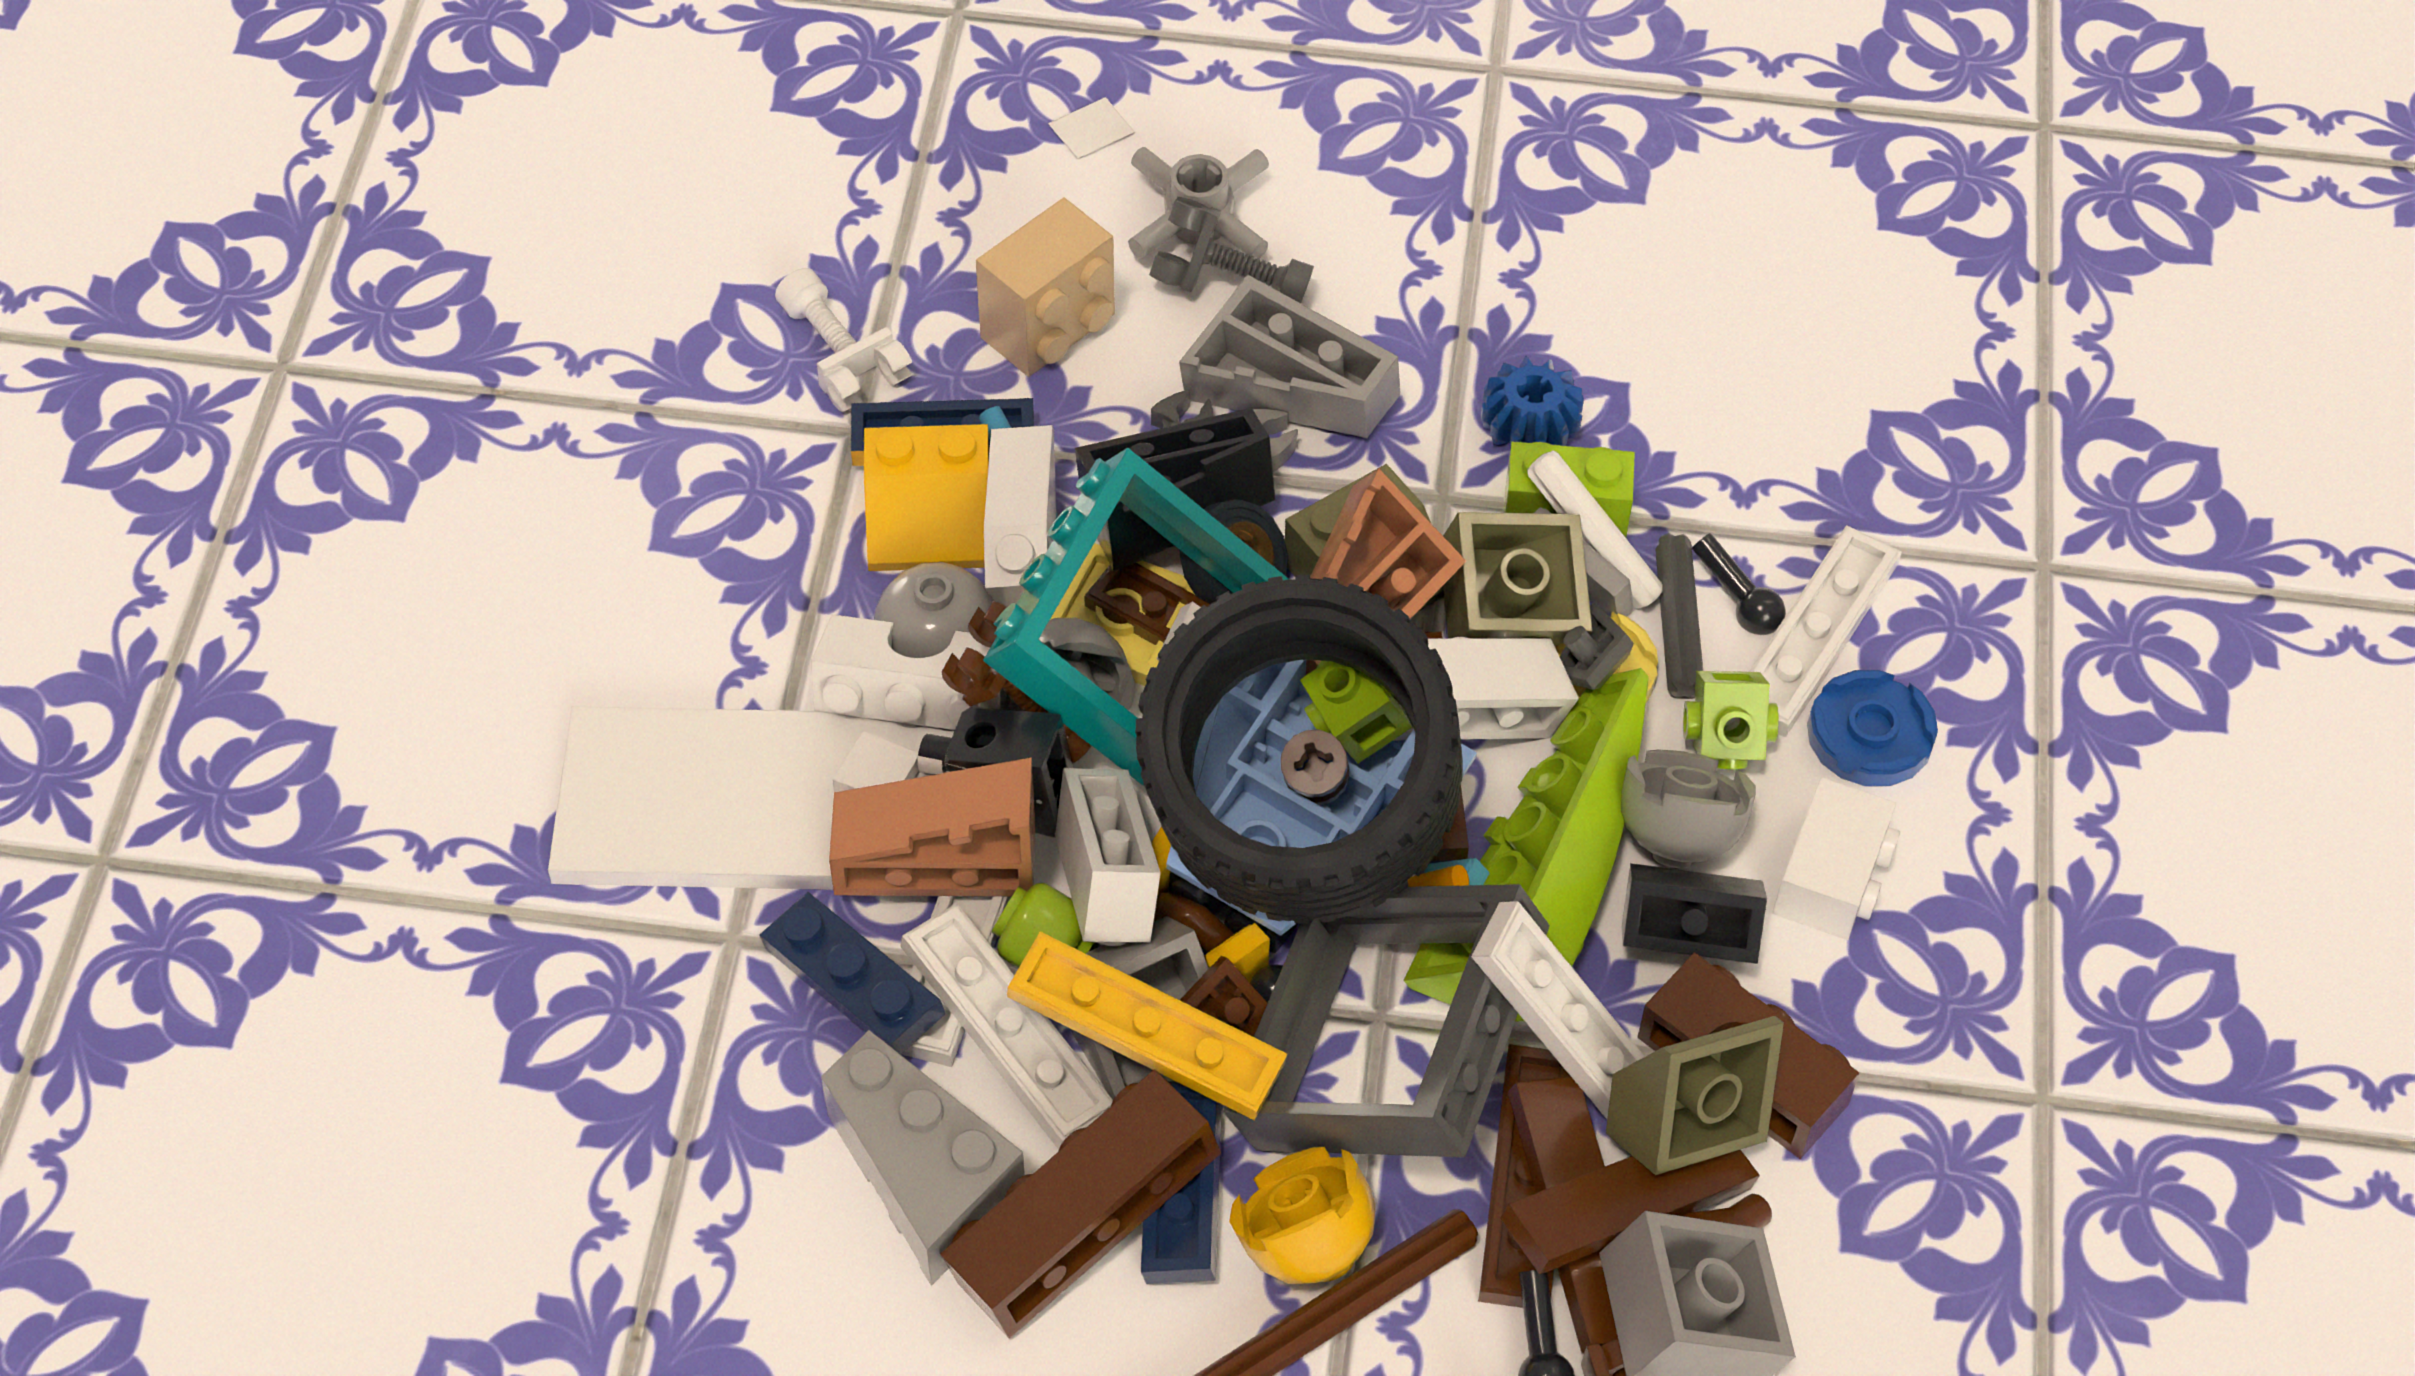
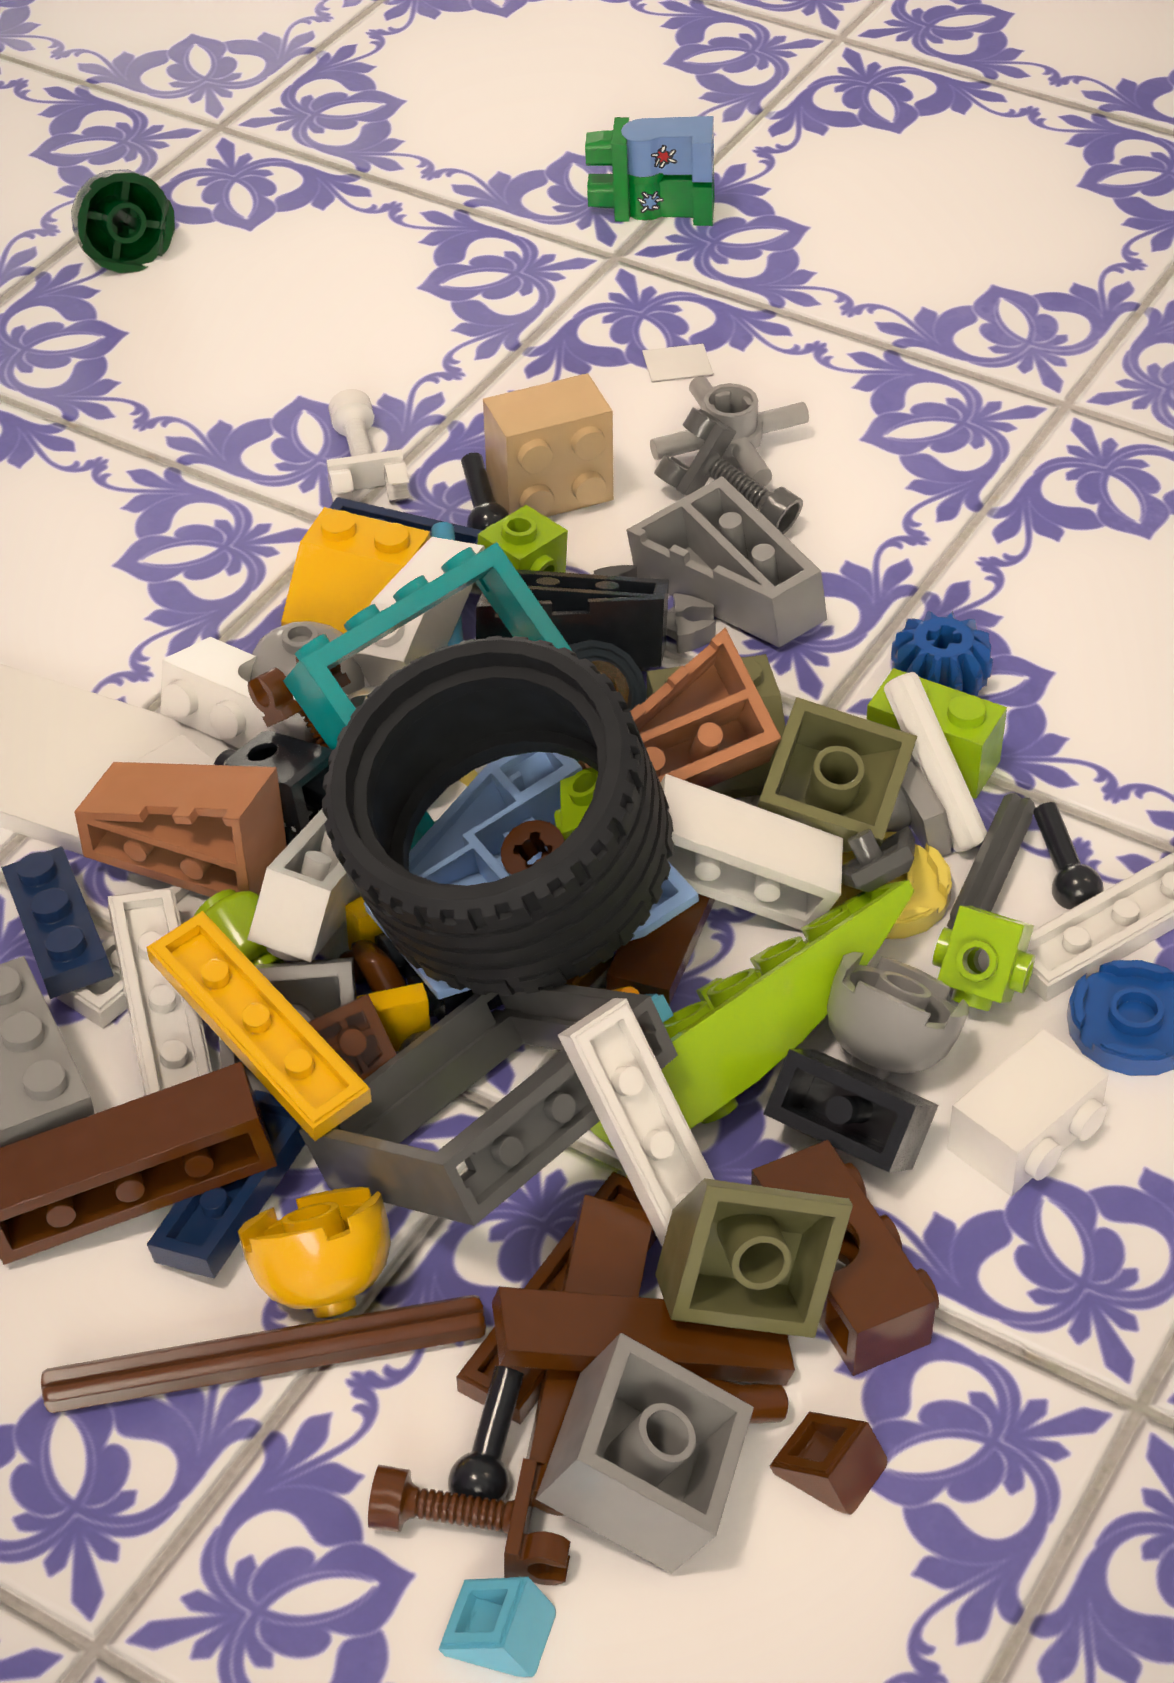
camera: 25 degrees right, 10 degrees down
(419, 123) = (122, 220): none -> dark green cylinder
(1004, 376) = (485, 510): none -> black bar
(1078, 421) = (529, 540): none -> lime brick
(1824, 1244) = (832, 1460): none -> reddish brown slope

